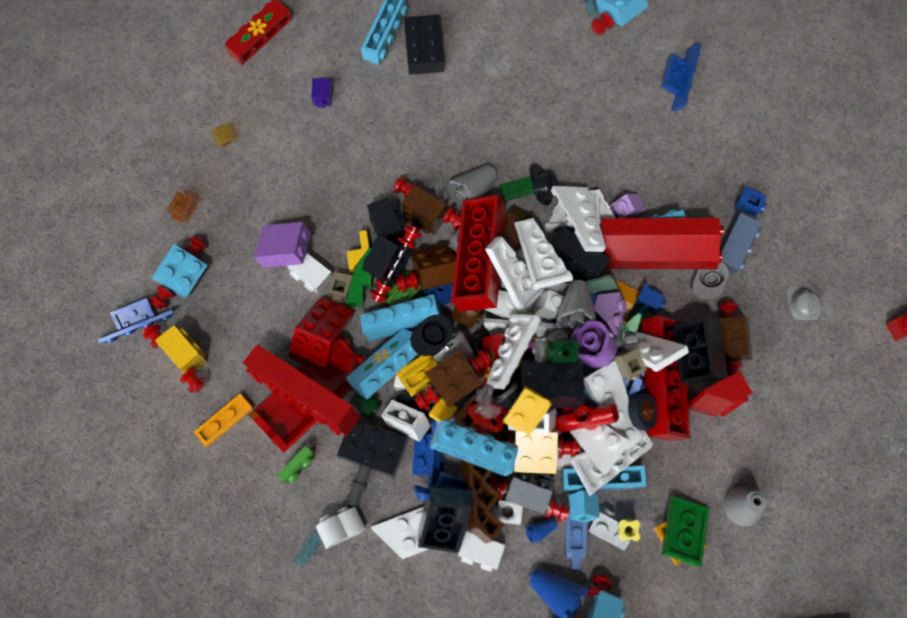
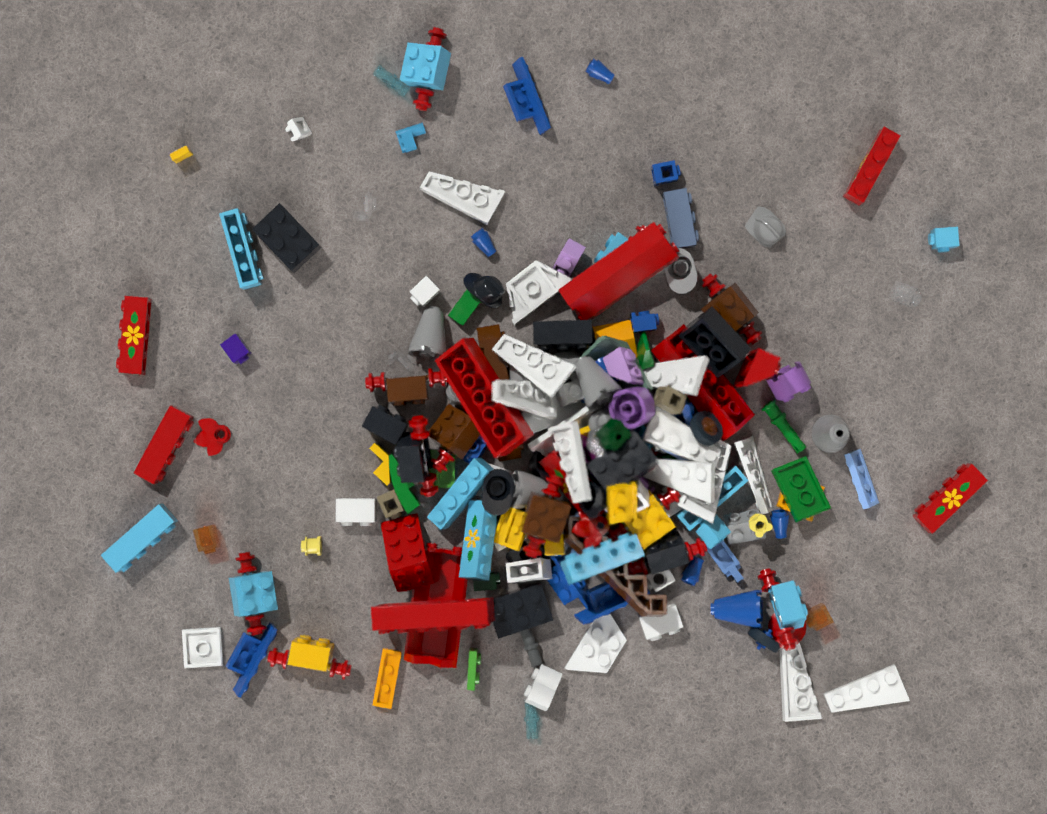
camera: 45 degrees left, 15 degrees up
(107, 286) = (202, 647): none -> white tile
(134, 169) = (140, 537): none -> medium azure brick
(201, 121) = (163, 445): none -> red brick
(223, 135) = (187, 452): clear yellow tile -> none
(249, 140) = (209, 436): none -> red plate
(254, 273) = (312, 546): none -> light yellow brick
(282, 244) = (317, 507): medium lavender brick -> none
(444, 518) = (618, 624): black brick -> none
(483, 399) = (581, 517): clear bracket -> none
(495, 152) = (424, 292): none -> white brick
(568, 41) = (406, 137): none -> dark azure piece
(568, 151) = (483, 242): none -> blue cone
(578, 419) = (675, 462): red piece -> none
(579, 110) = (464, 196): none -> white wing
(582, 215) = (535, 295): white wing -> none
(646, 546) = (780, 523): none -> blue cone
(656, 482) = (752, 466): none -> white wing
(707, 462) = (779, 419): none -> green pin
(739, 432) = (789, 382): none -> medium lavender brick
(744, 564) = (861, 479): none -> light blue plate
(752, 97) = (599, 71): none -> blue cone

